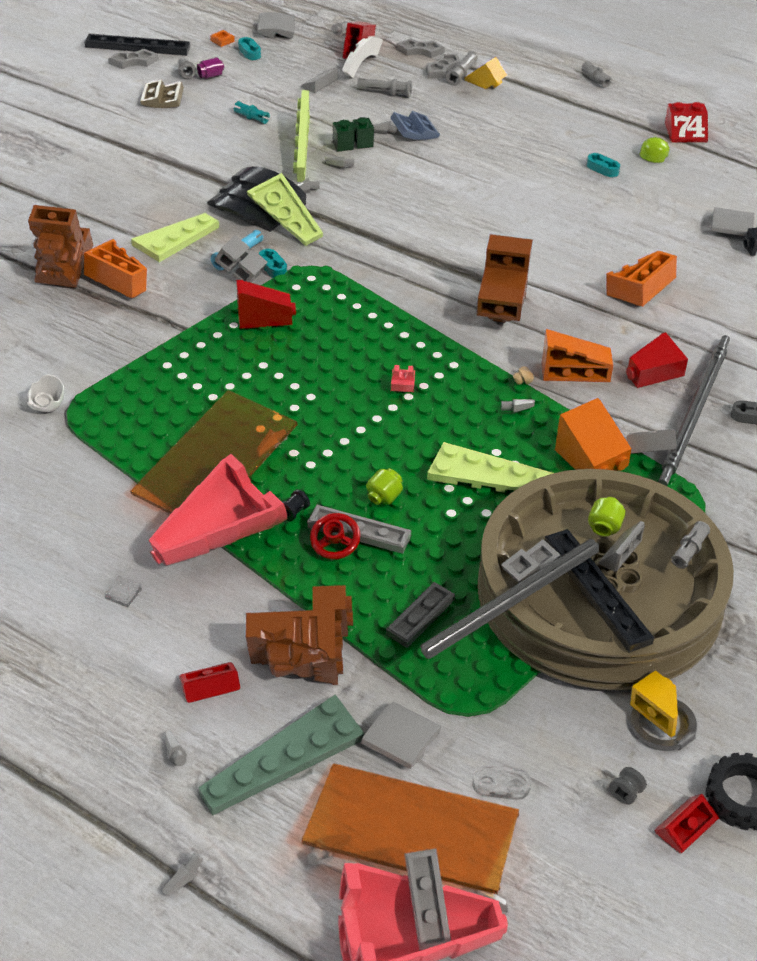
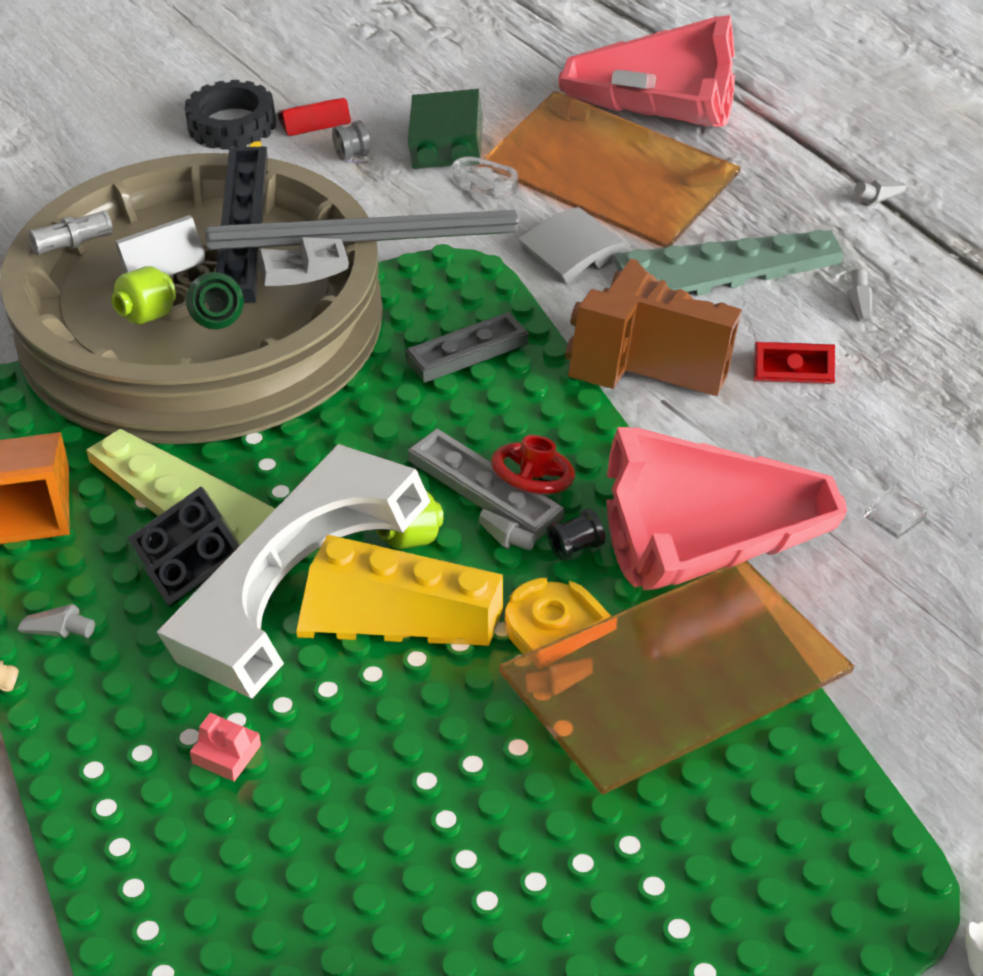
camera: 155 degrees left, 0 degrees up
(286, 470) = (549, 611): none -> yellow tile
(333, 502) = (506, 531): none -> light grey bar
(362, 451) = (397, 595): none -> yellow wedge
(420, 458) = (221, 622): none -> white arch
(483, 441) = (184, 545): none -> black slope
(557, 514) = (207, 289): none -> dark green cone
(562, 819) = (444, 127): none -> dark green brick

